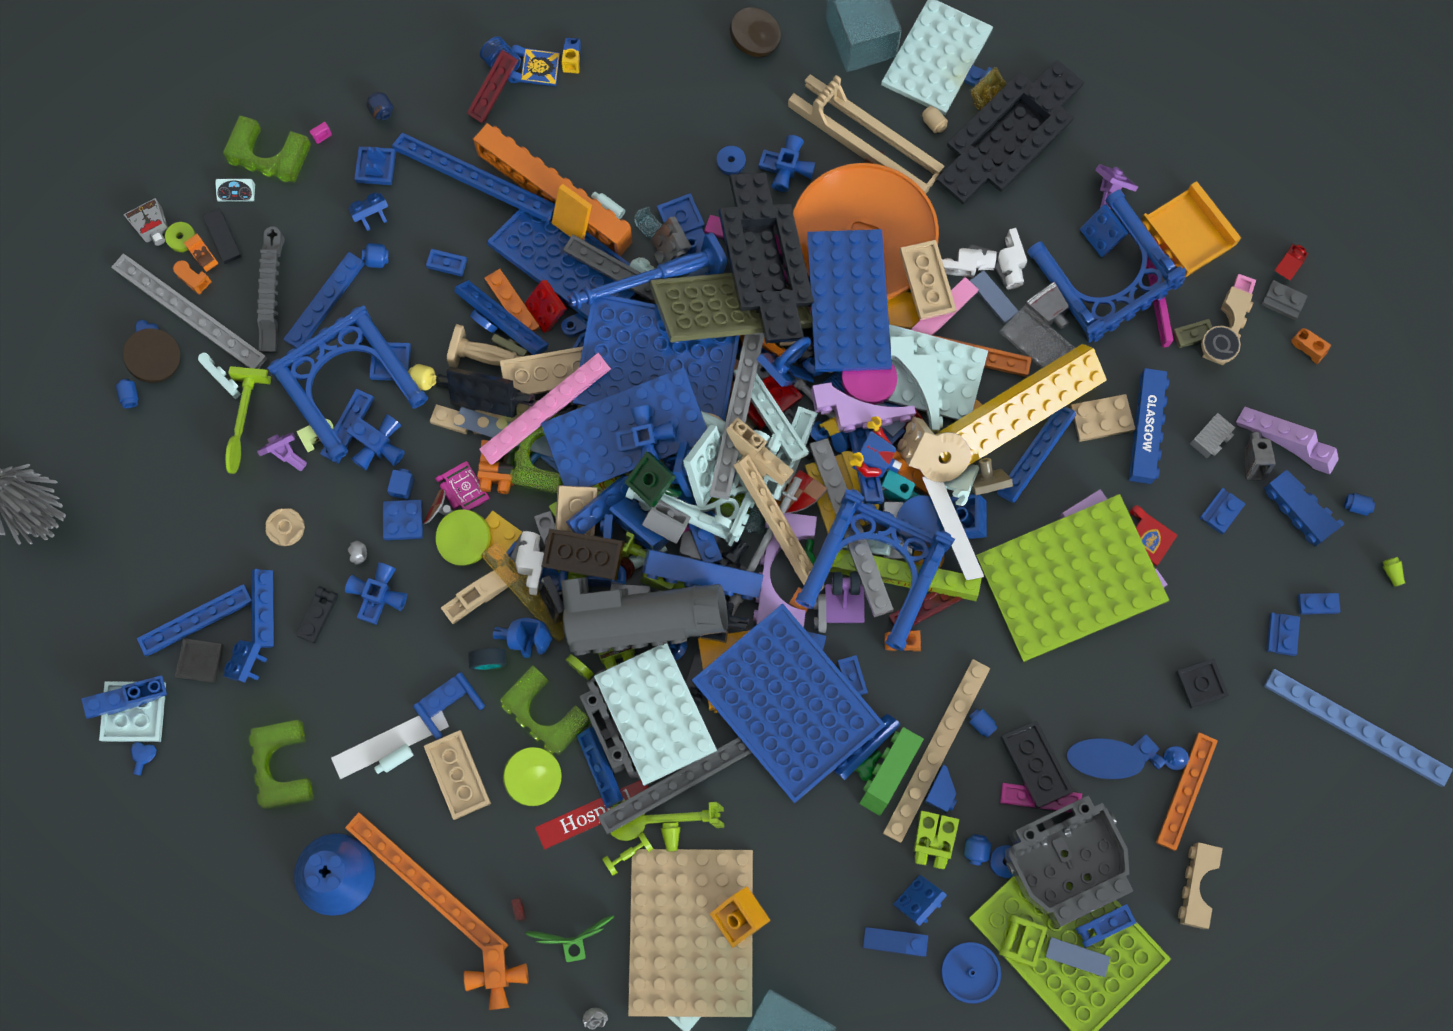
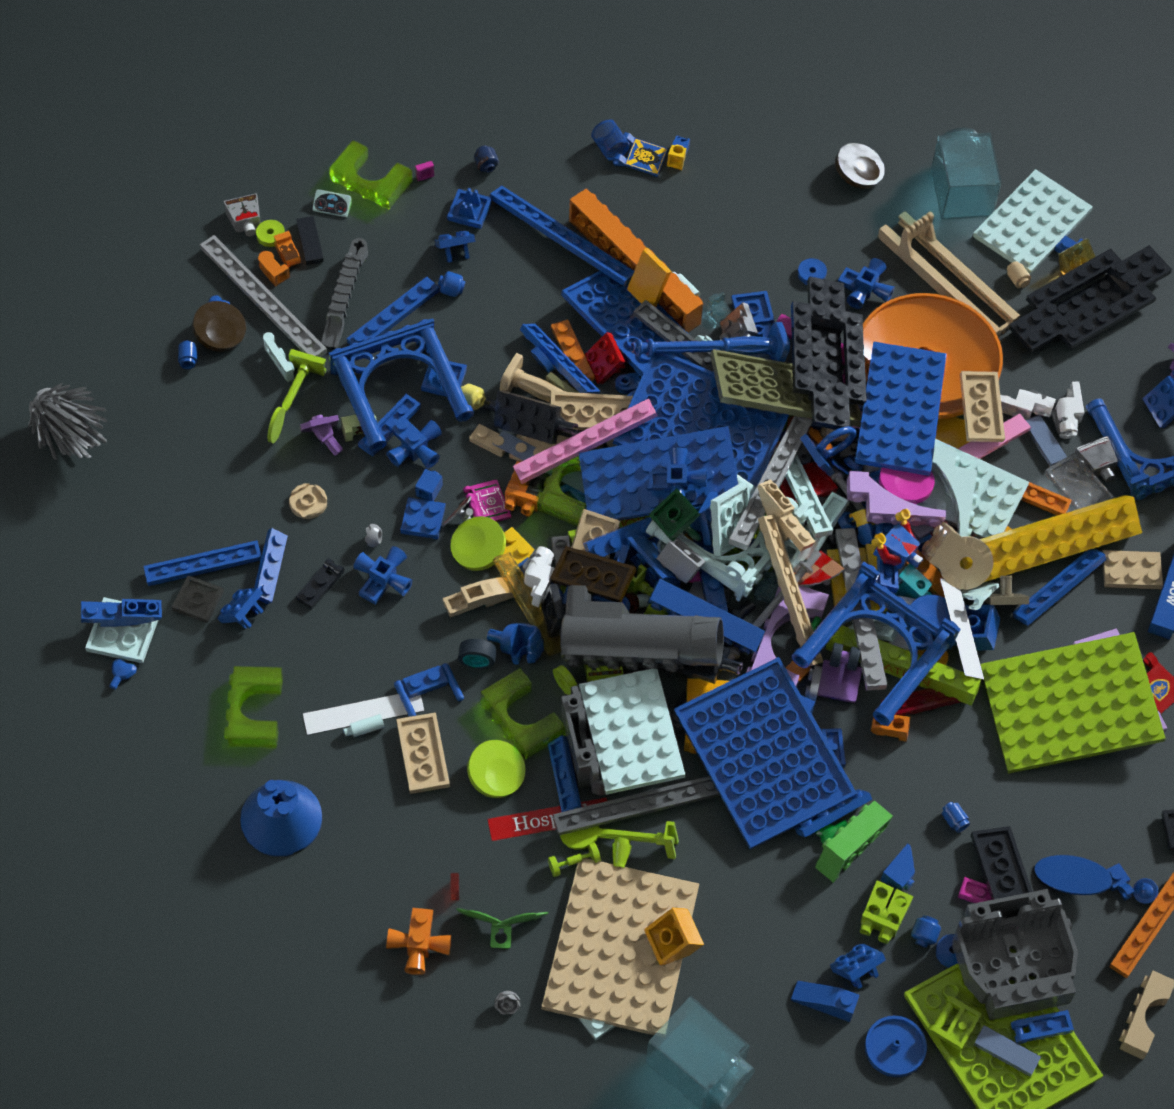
camera: 10 degrees right, 15 degrees down
(423, 883) = (365, 841): orange plate -> none
(446, 262) = (518, 304): blue plate -> none
(492, 86) = (597, 161): dark red plate -> none
(678, 649) = (667, 684): blue hat -> none
(936, 751) = (902, 834): tan plate -> none

